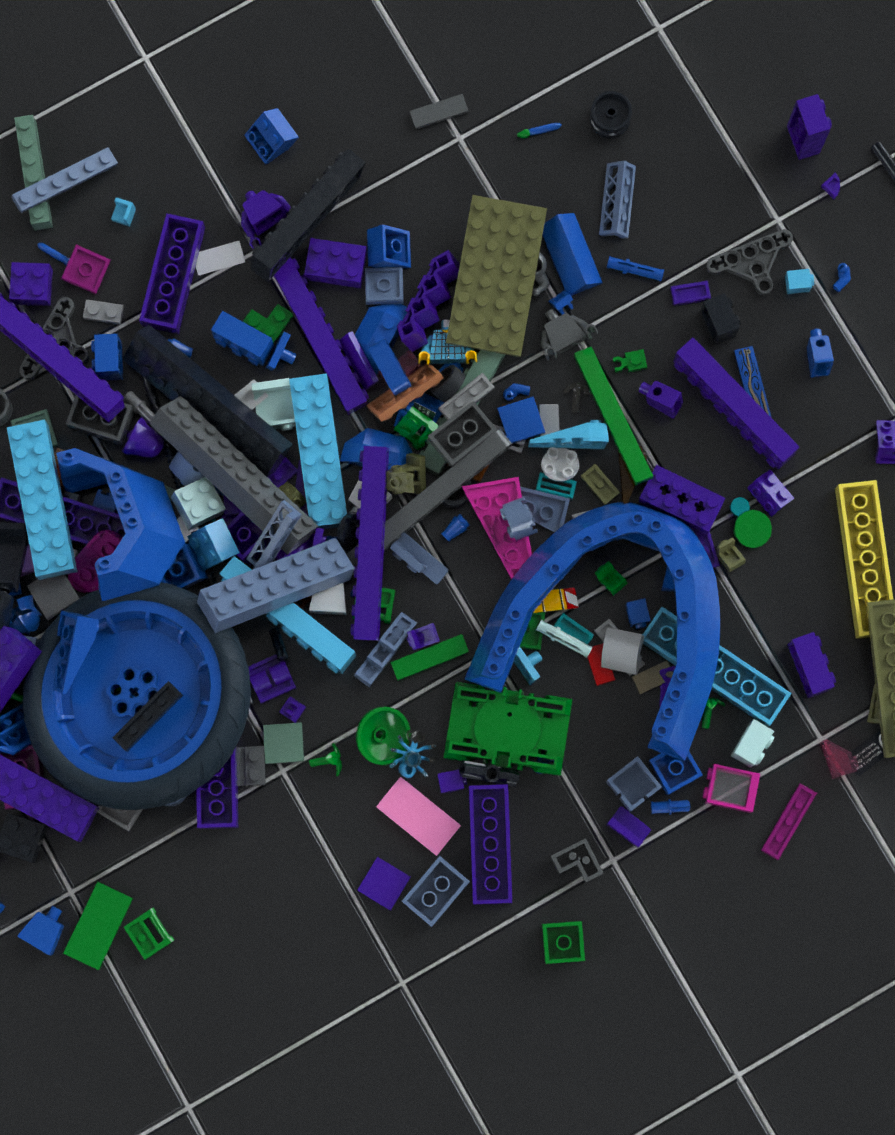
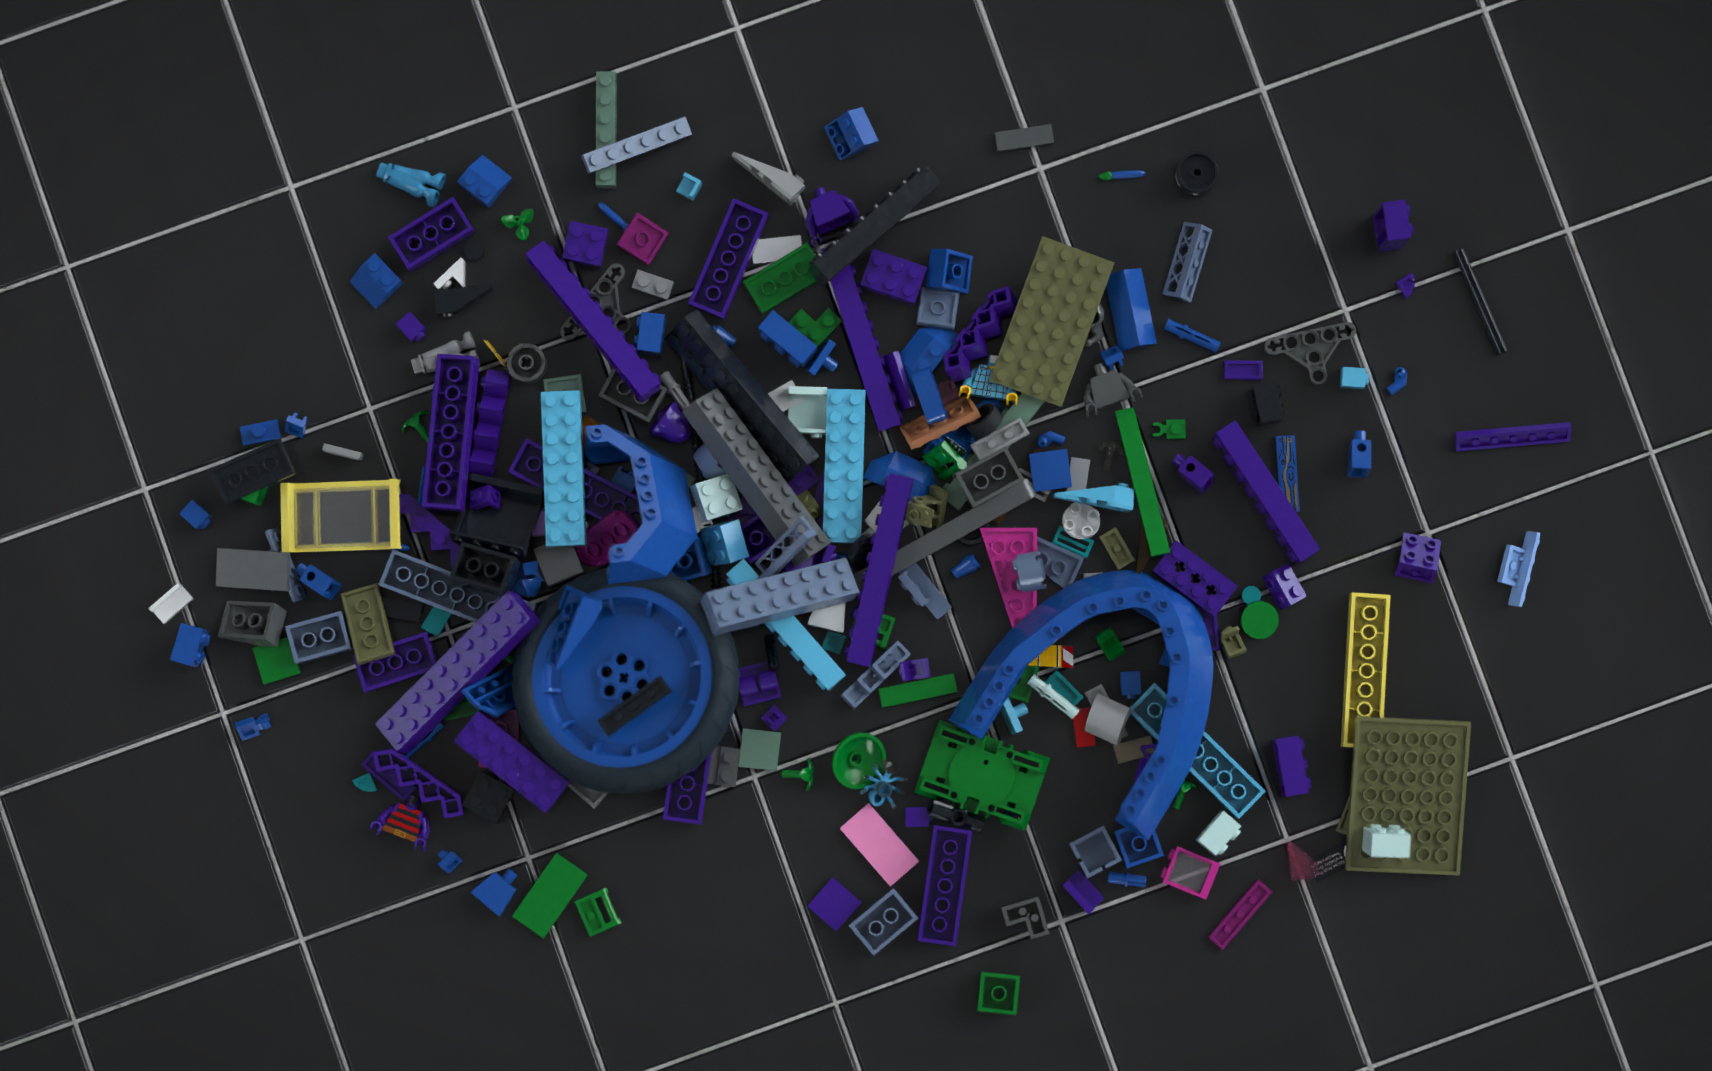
camera: 10 degrees right, 5 degrees up
(209, 192) = (780, 182): none -> light grey wedge
(227, 285) = (781, 279): none -> green tile
(338, 624) = (833, 642): none -> teal tile

